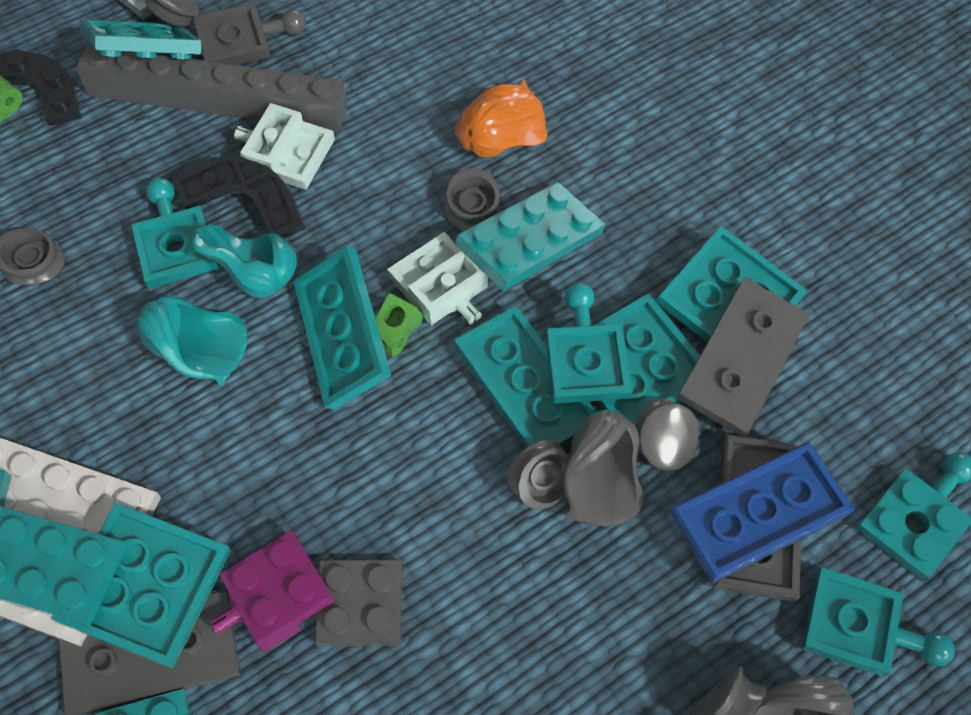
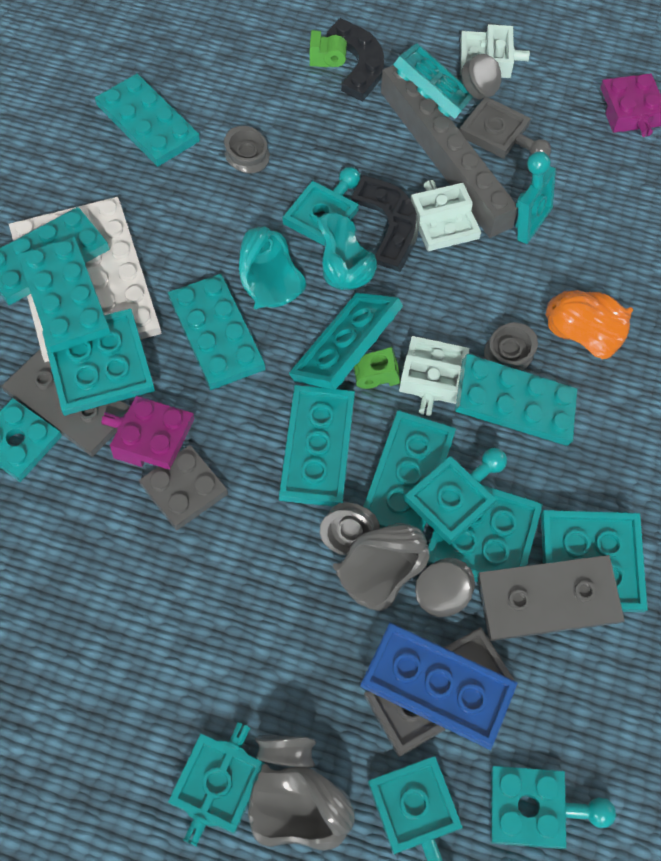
camera: 50 degrees right, 0 degrees up
(209, 441) = (216, 331): none -> teal plate
(334, 23) = (538, 199): none -> teal plate
(427, 439) = (317, 446): none -> teal plate

